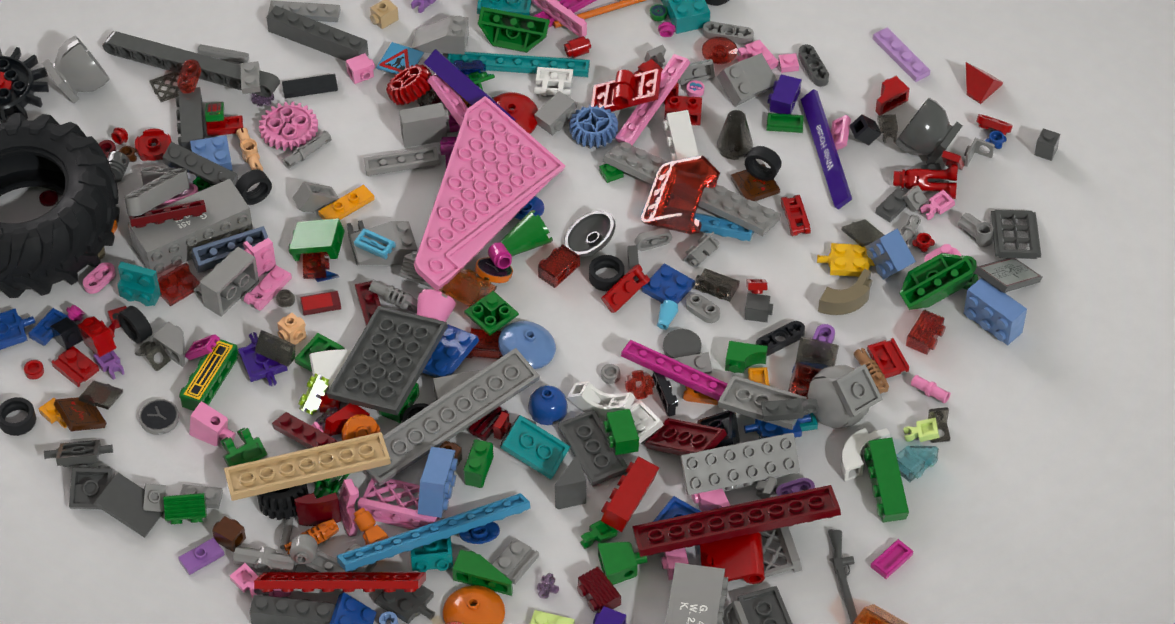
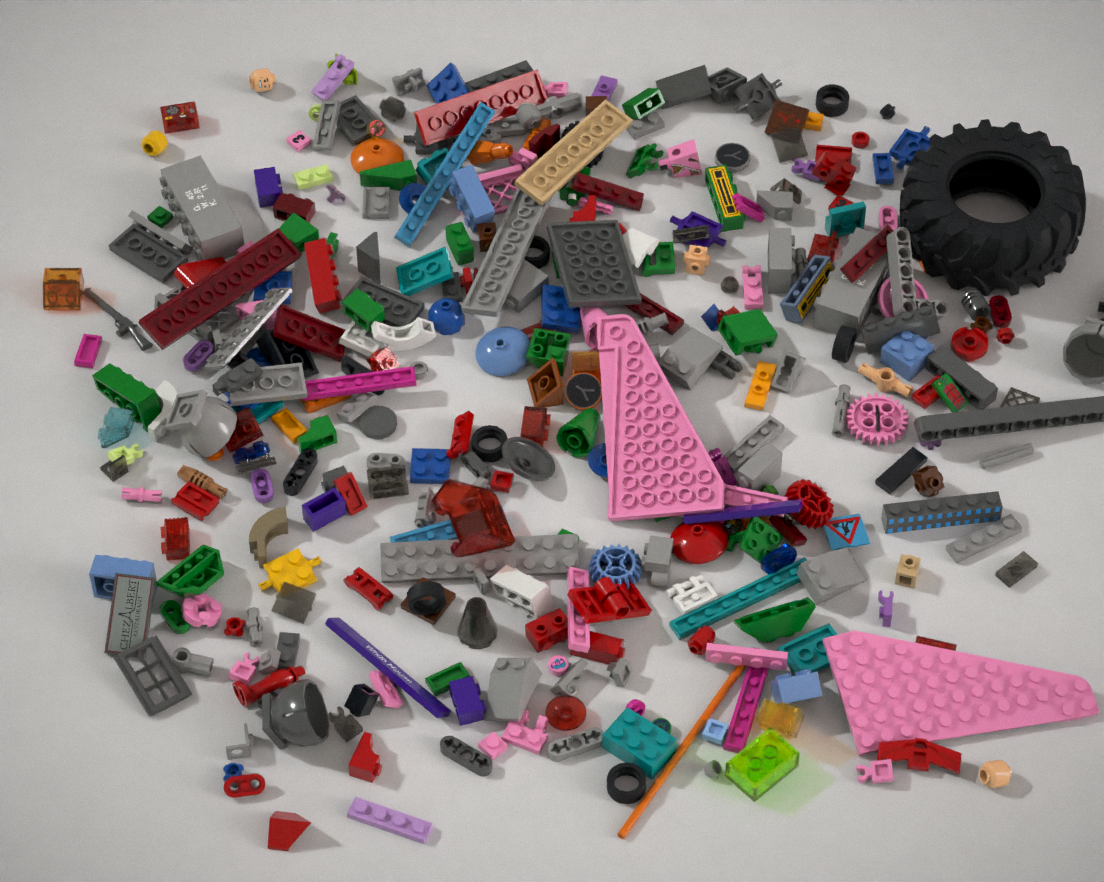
camera: 145 degrees right, 0 degrees up
(66, 333) = (863, 163): black brick -> none
(75, 313) = (870, 189): dark pink plate -> none
(135, 324) = (815, 184): black tyre -> none
(154, 497) = (672, 98): light grey bracket -> none
(190, 75) = (997, 395): clear red plate -> none
(250, 77) = (940, 413): light grey plate -> none
(263, 254) = (777, 289): bright pink bracket -> none
(296, 58) = (928, 480): none -> reddish brown brick
(309, 400) = (630, 221): hinge -> none
(320, 303) = (699, 298): tile -> none
(322, 419) = (604, 214): plant -> none
(359, 426) = (565, 210): orange tile -> none
(360, 68) = (872, 504): bright pink brick -> none
(374, 245) = (691, 340): medium azure tile -> none
(500, 255) = (585, 396): dark pink brick -> none
(519, 291) = (546, 385): none -> dark orange slope
(623, 238) = (501, 481): none -> red plate
(667, 312) = (410, 437): medium azure cone -> none
(787, 284) = (324, 509): none -> dark purple piece
(890, 254) = (248, 573): medium blue brick -> none
(951, 158) = (253, 708): red plate -> none
(1047, 144) = (177, 788): dark grey brick -> none

